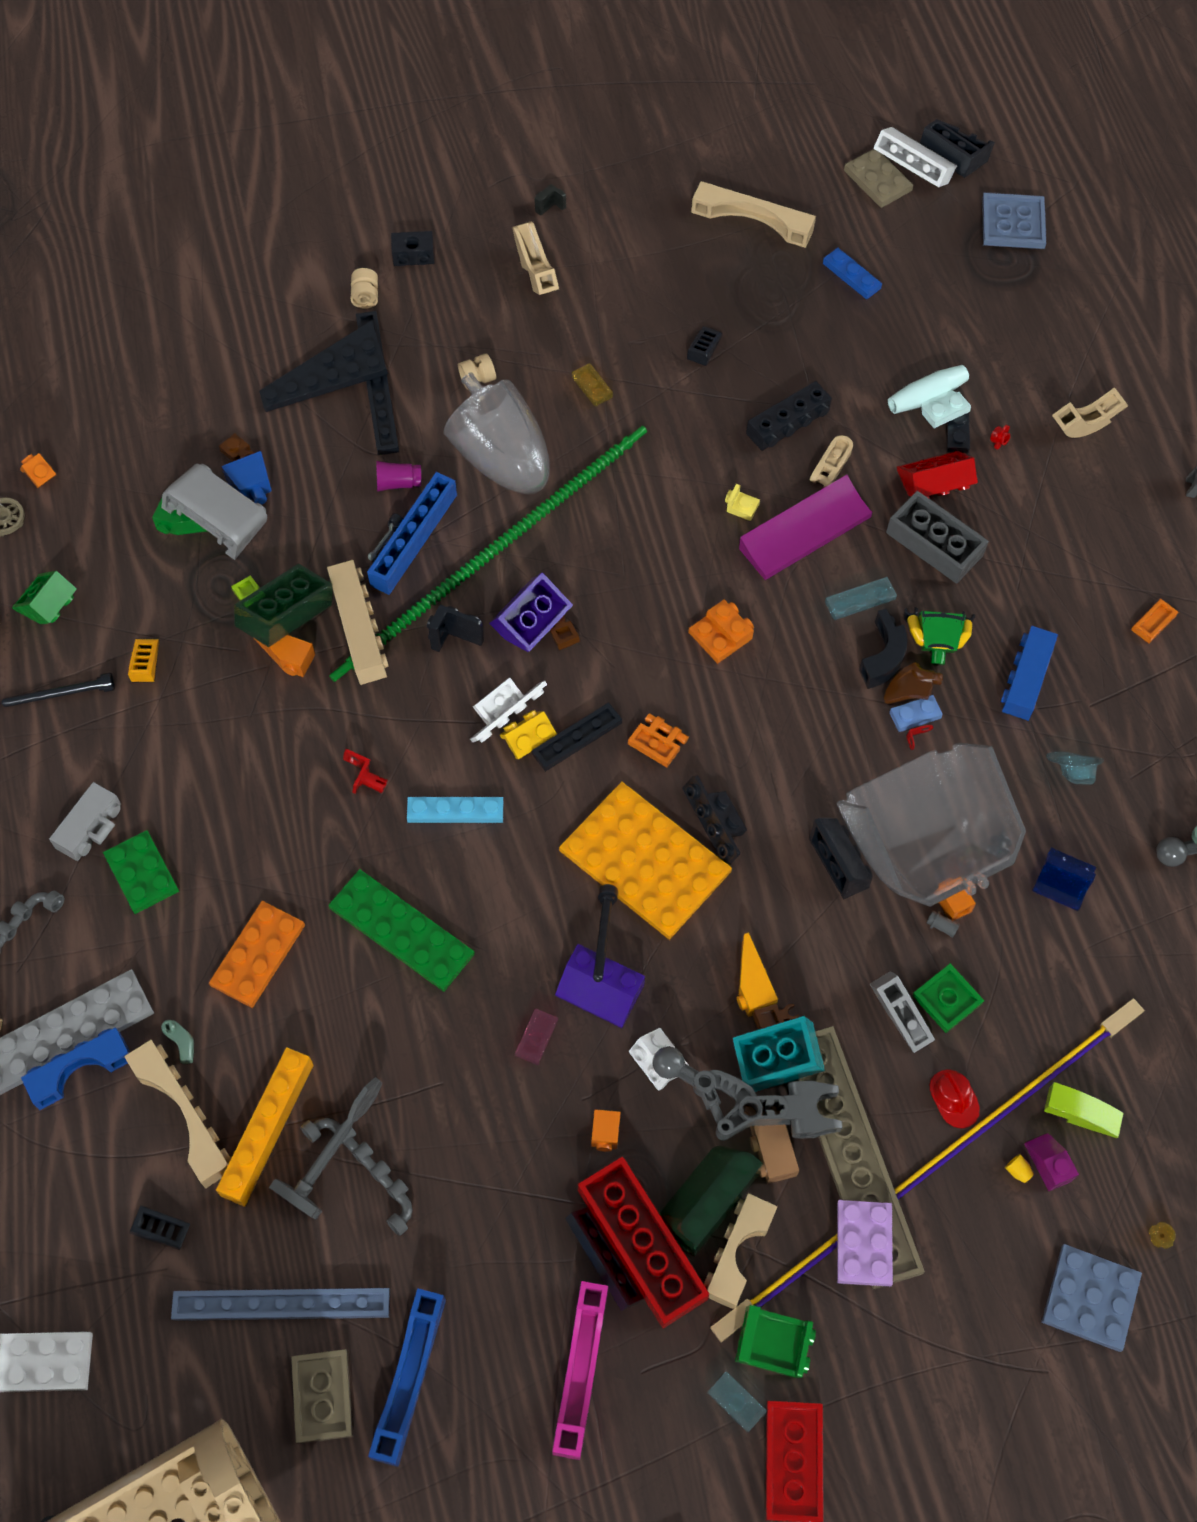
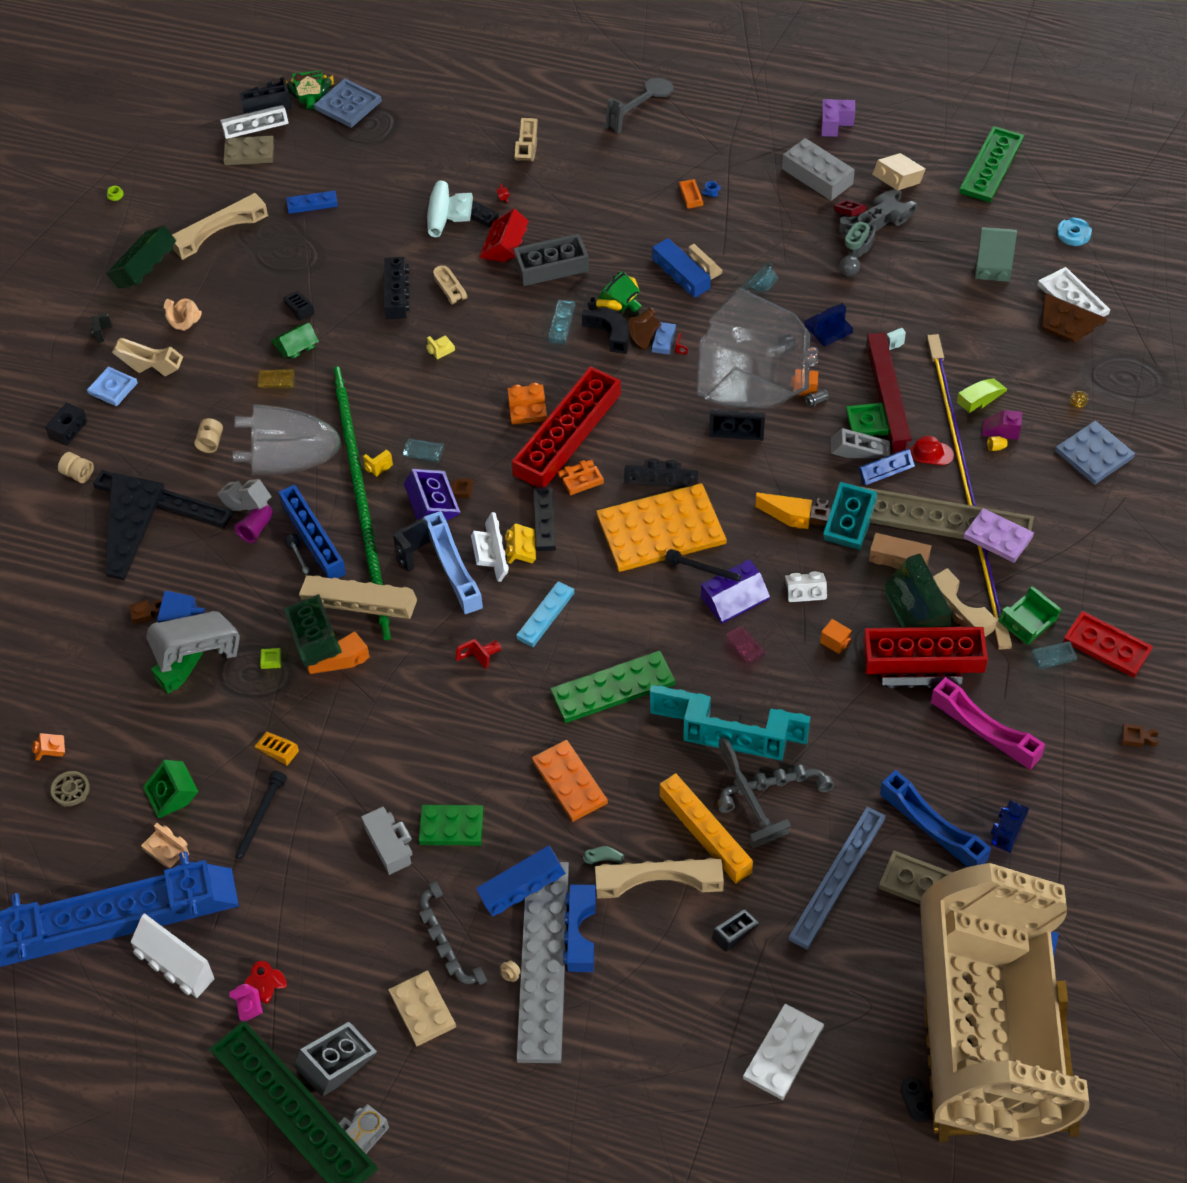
camera: 55 degrees left, 10 degrees down
(94, 977) = (520, 881): none -> blue brick
(396, 1041) = (747, 739): none -> teal bracket
(412, 446) = (246, 497): none -> light grey arch
(434, 711) = (459, 578): none -> light blue arch
(451, 1470) = (1011, 823): none -> clear blue brick
(485, 256) = (112, 386): none -> light blue plate
(543, 540) = (378, 464): none -> yellow bracket
(591, 570) = (423, 450): none -> clear light blue plate
(613, 255) = (183, 314): none -> light nougat helmet
(651, 370) = (295, 340): none -> green slope
(655, 176) = (141, 257): none -> clear green brick
(711, 687) = (566, 428): none -> red brick
(730, 105) = (115, 193): none -> lime plate
(795, 1109) = (892, 521): dark grey piece -> none
(804, 527) = (486, 324): magenta arch -> none
(891, 1056) = (886, 466): none -> plate
(1004, 174) = (309, 87): none -> torso
(1007, 999) = (888, 391): none -> dark red tile
(1055, 694) = (704, 261): none -> tan bracket
(1096, 964) = (896, 338): none -> light aqua plate
(1180, 633) = (711, 189): none -> blue plate

